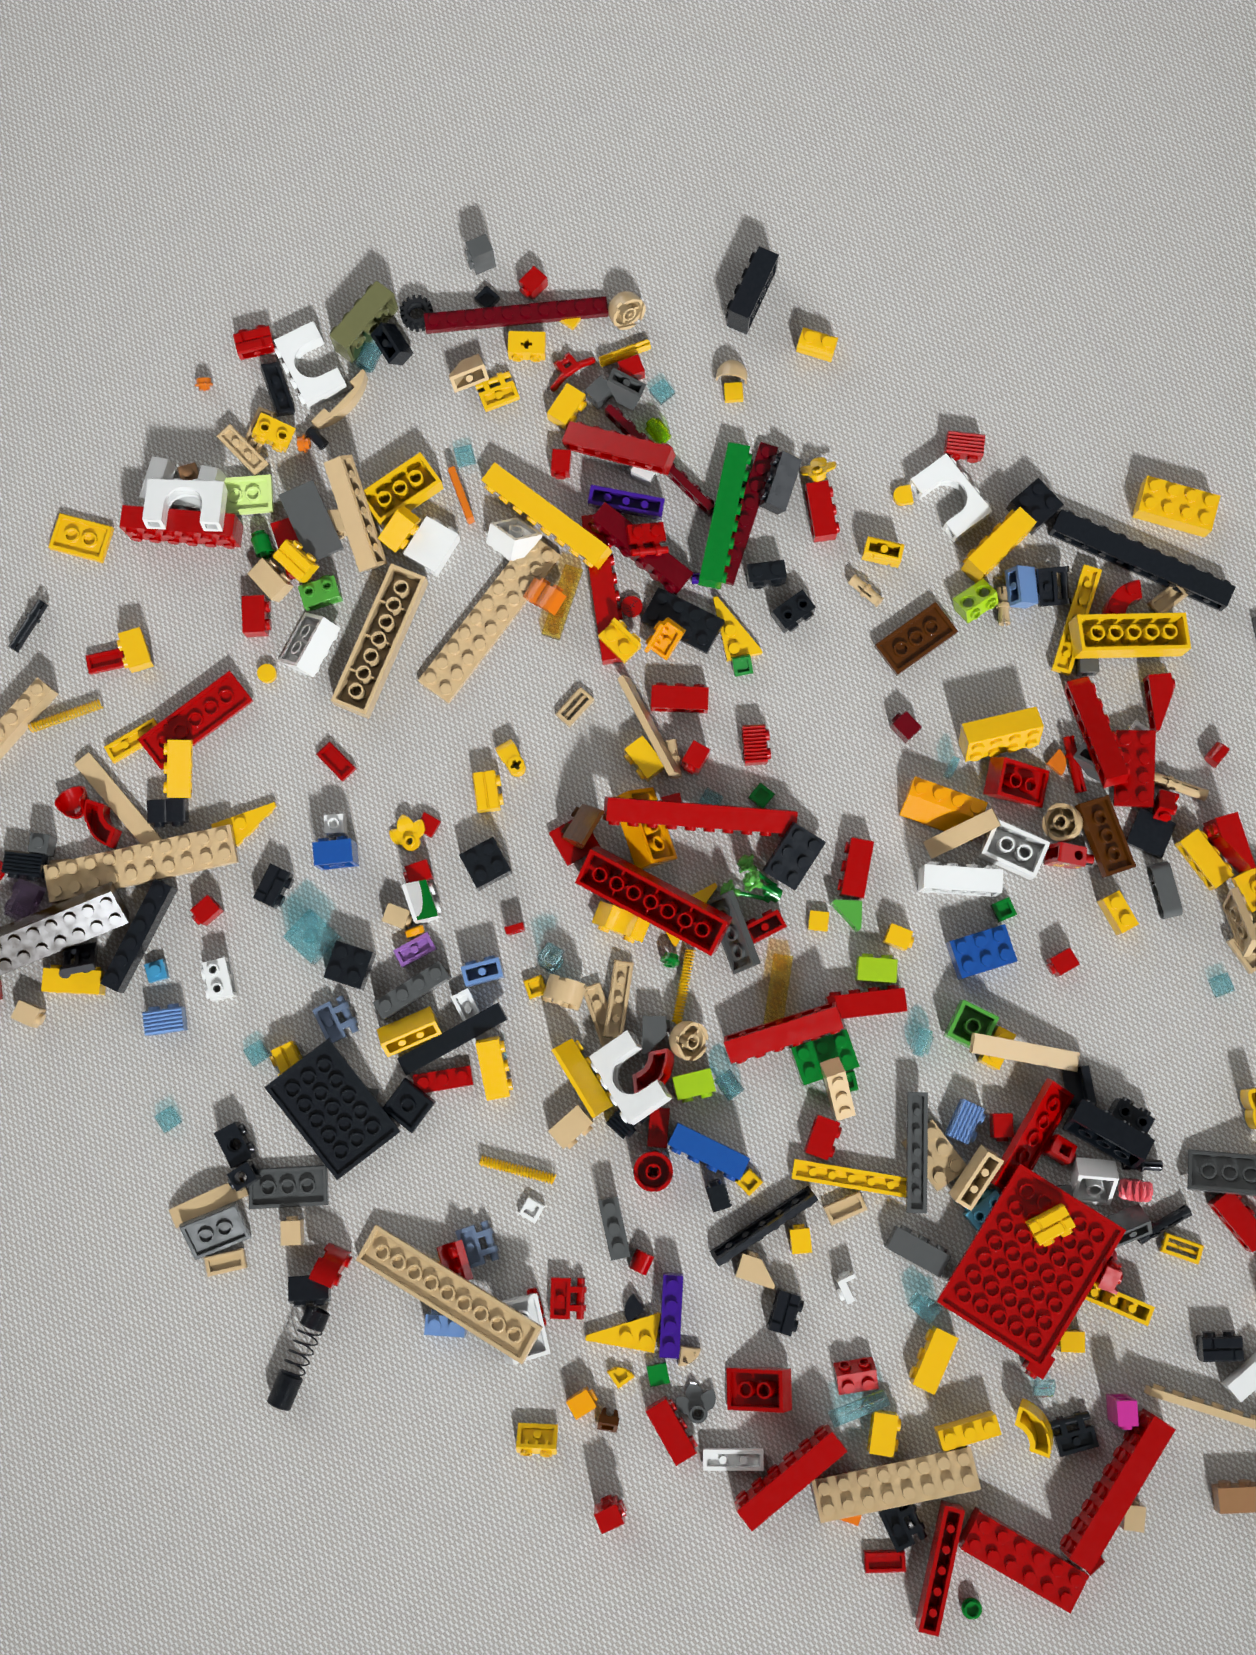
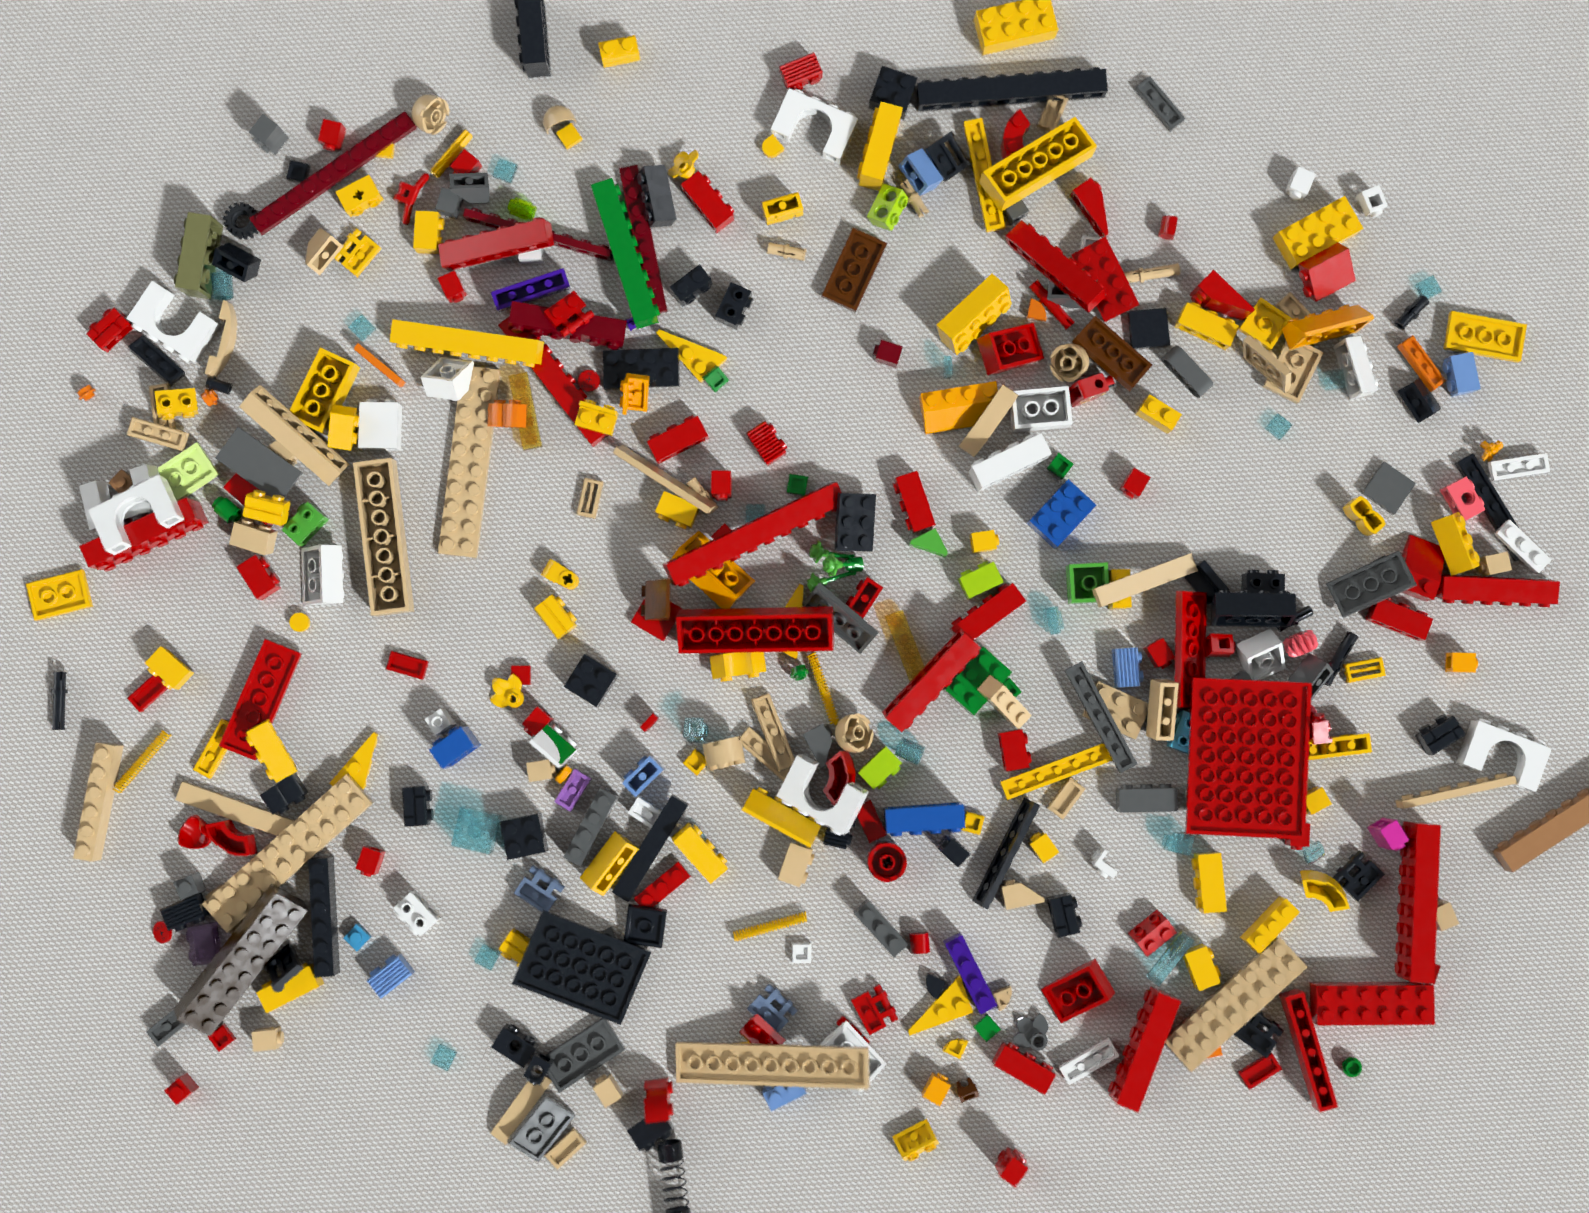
camera: 35 degrees left, 5 degrees up
(818, 921) = (907, 566): yellow tile -> none
(1050, 1225) = (1247, 715): yellow brick -> none
(1165, 805) = (1148, 297): red brick -> none

